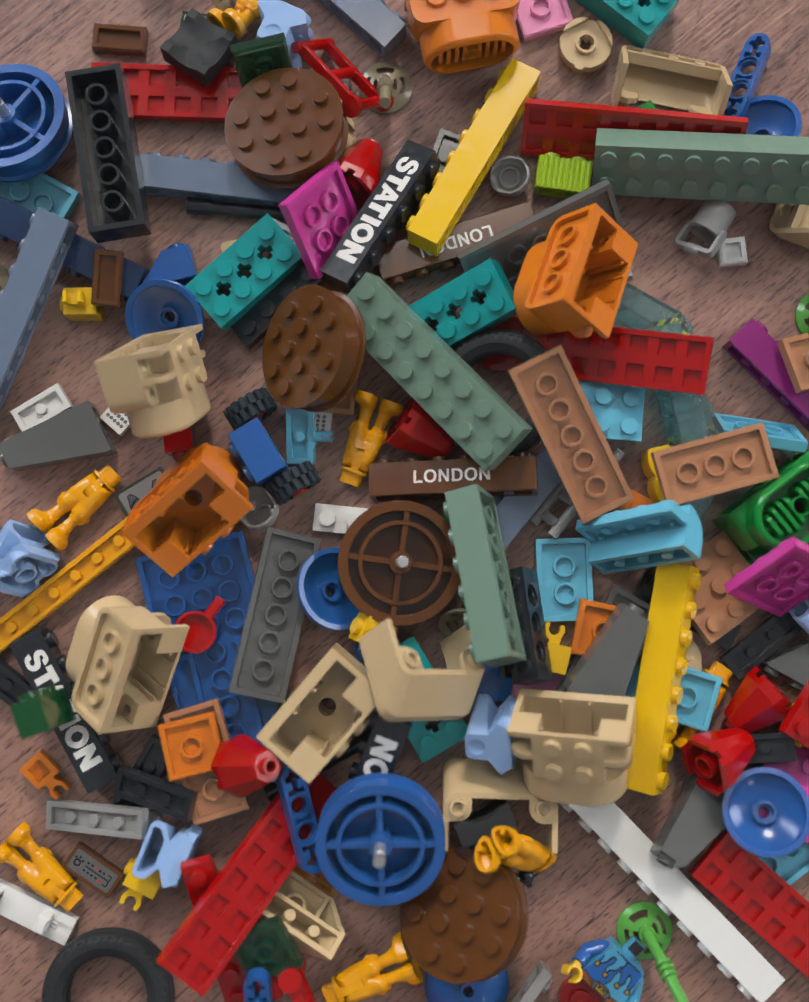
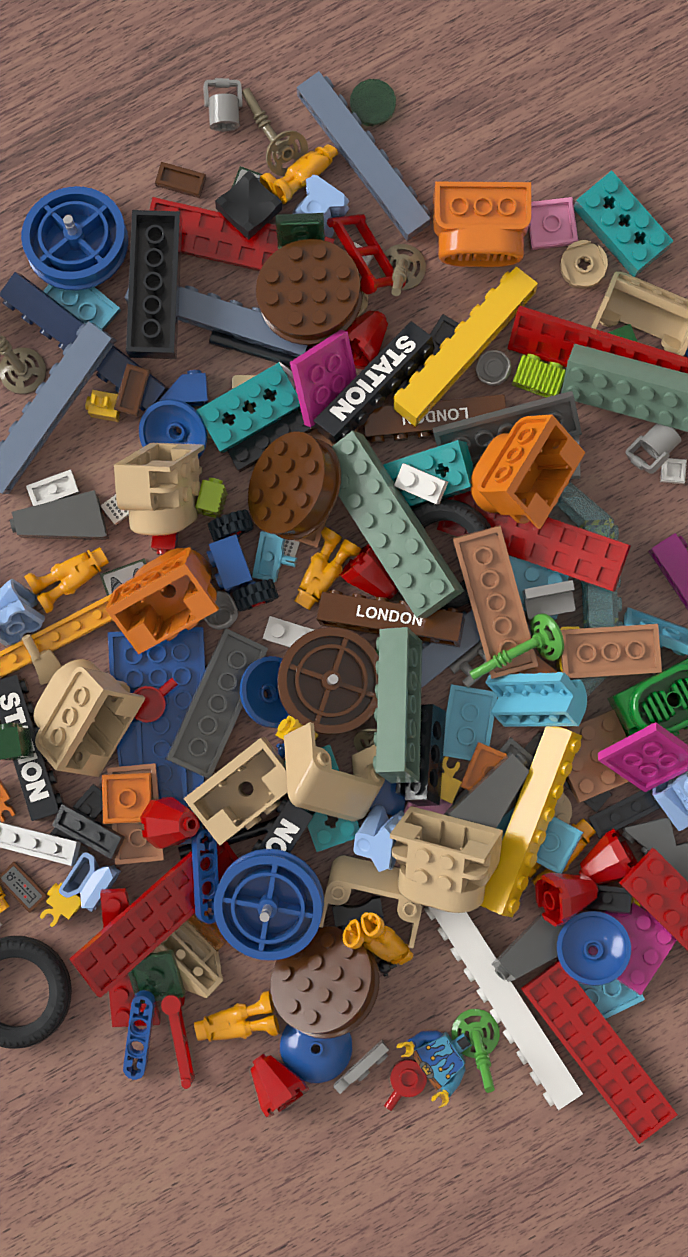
camera: 15 degrees right, 0 degrees up
(69, 606) = (44, 662): none -> tan piece
(222, 382) = (211, 498): none -> lime brick
(457, 317) = (421, 483): none -> white plate
(628, 470) = (537, 640): none -> bright green dish
(630, 420) = (549, 599): none -> light grey panel

